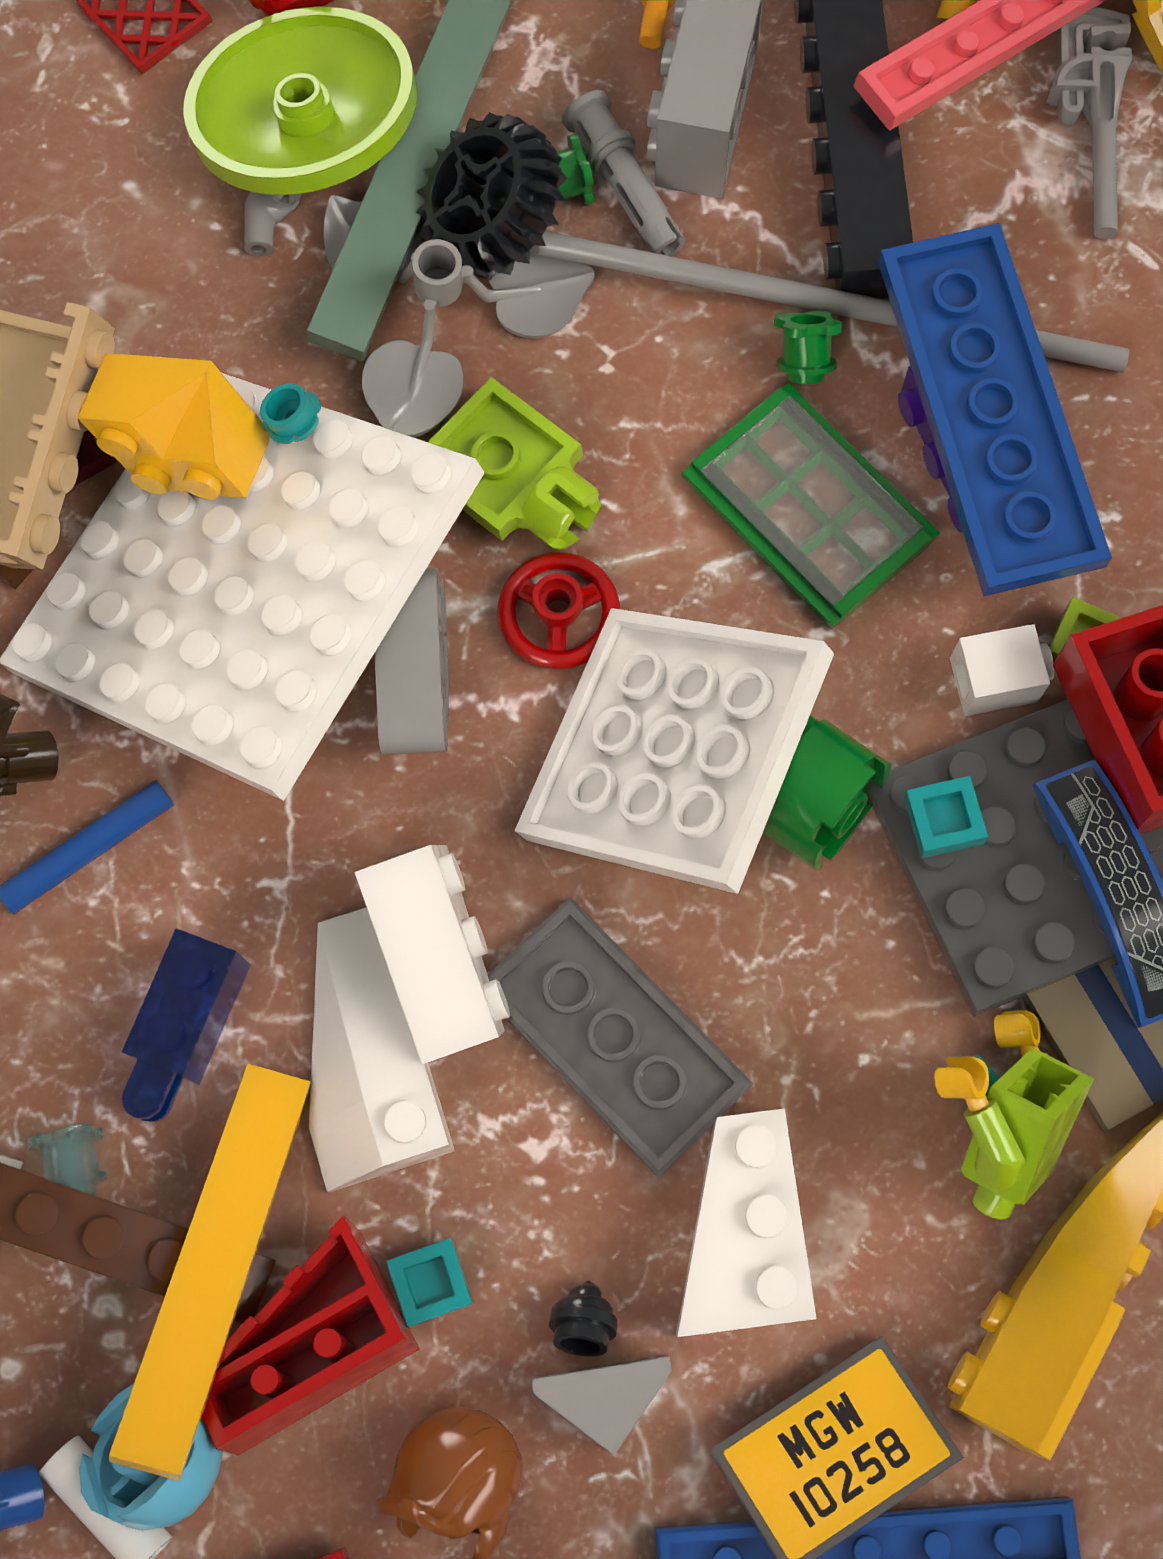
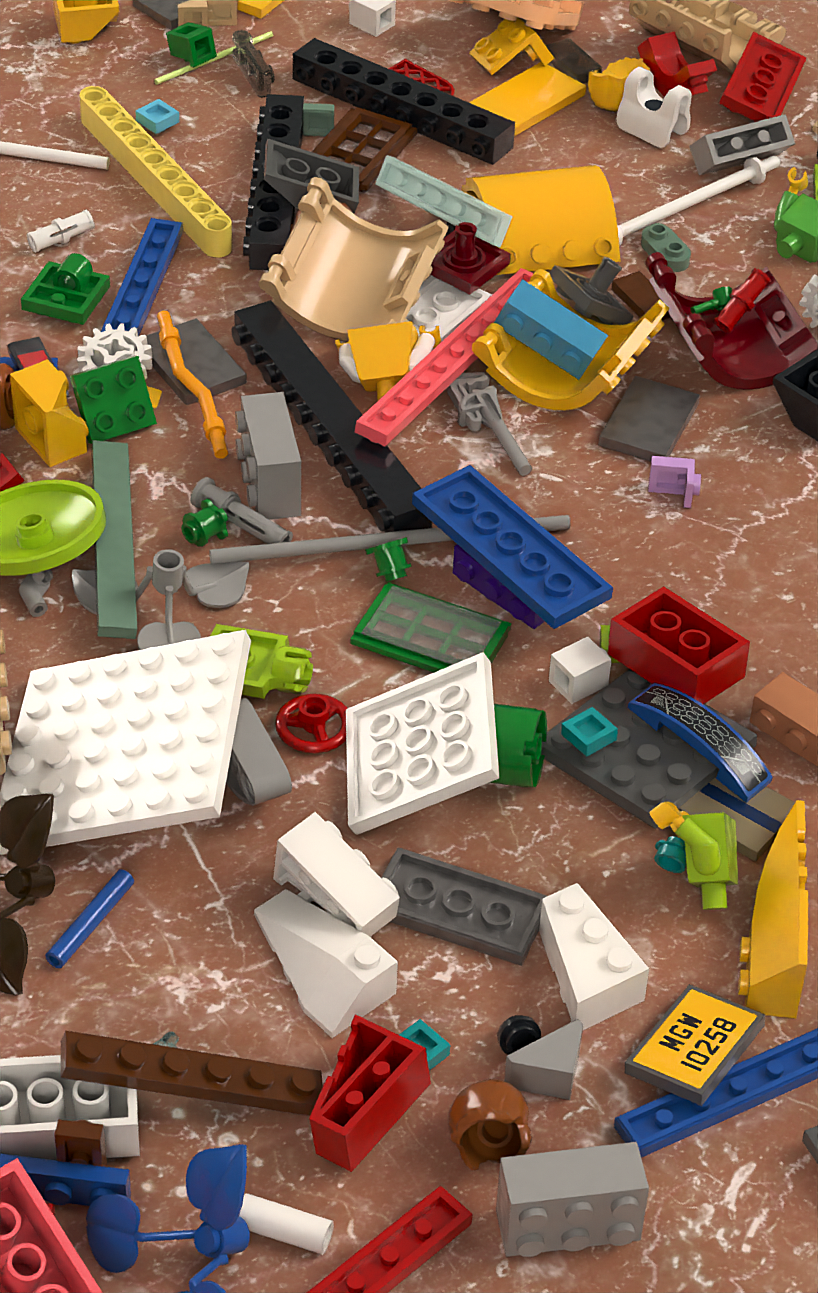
camera: 30 degrees left, 30 degrees down
(139, 1497) = (305, 1172): medium azure cylinder -> none
(175, 425) = (57, 672): yellow slope -> none
(180, 1022) = (201, 971): clear blue brick -> none
(210, 1275) = (293, 1064): yellow tile -> none
(290, 413) = (120, 651): teal plate -> none
(492, 193) = (177, 523): black gear -> none

